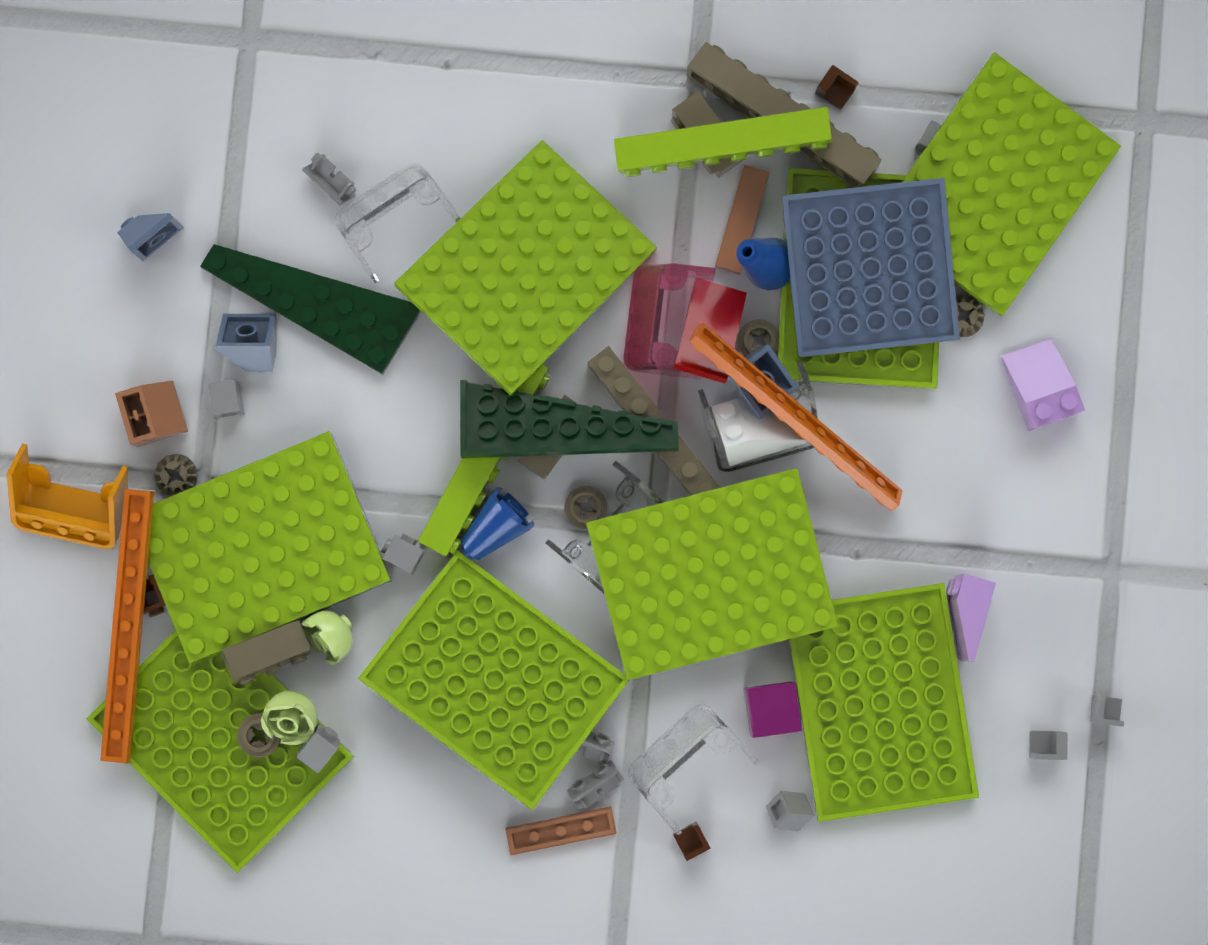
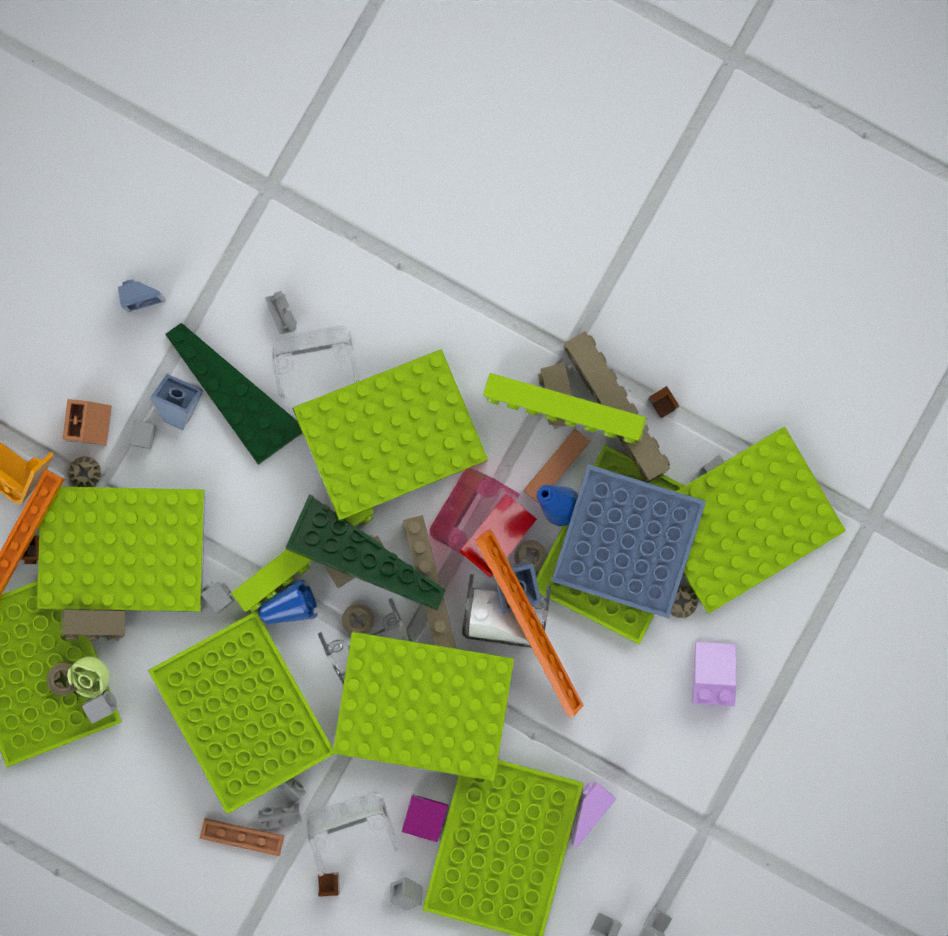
camera: 25 degrees right, 0 degrees up
(329, 634) = (142, 630): yellowish green cylinder -> none

